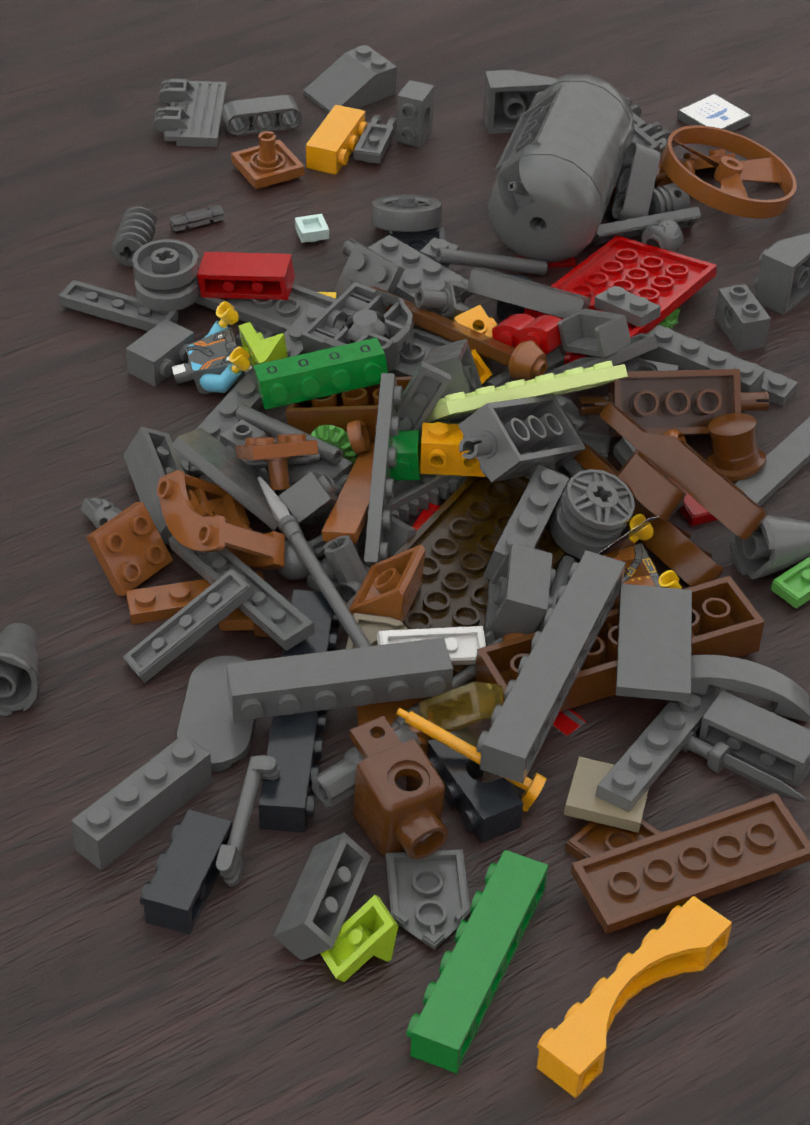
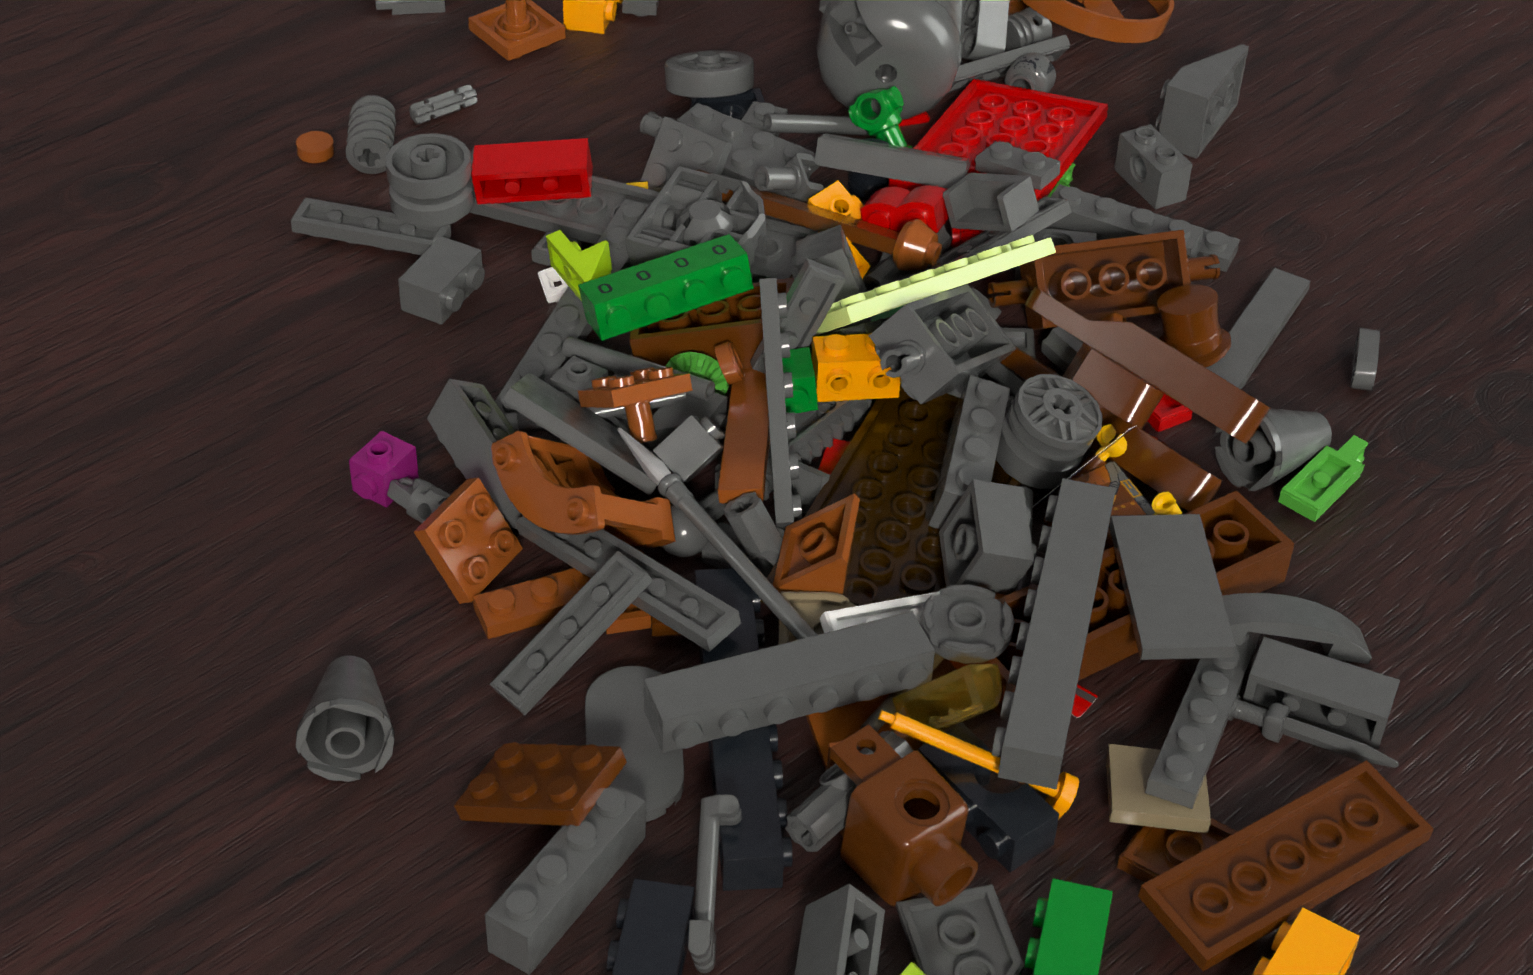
camera: 10 degrees left, 0 degrees up
(81, 483) = (379, 463): none -> magenta brick
(92, 242) = (315, 146): none -> dark orange tile
(137, 732) = (540, 784): none -> reddish brown plate
(215, 359) = (516, 280): torso -> none
(311, 228) = (593, 103): light aqua plate -> none
(486, 652) = (967, 624): none -> dark grey tile
(533, 263) = (886, 124): none -> green connector

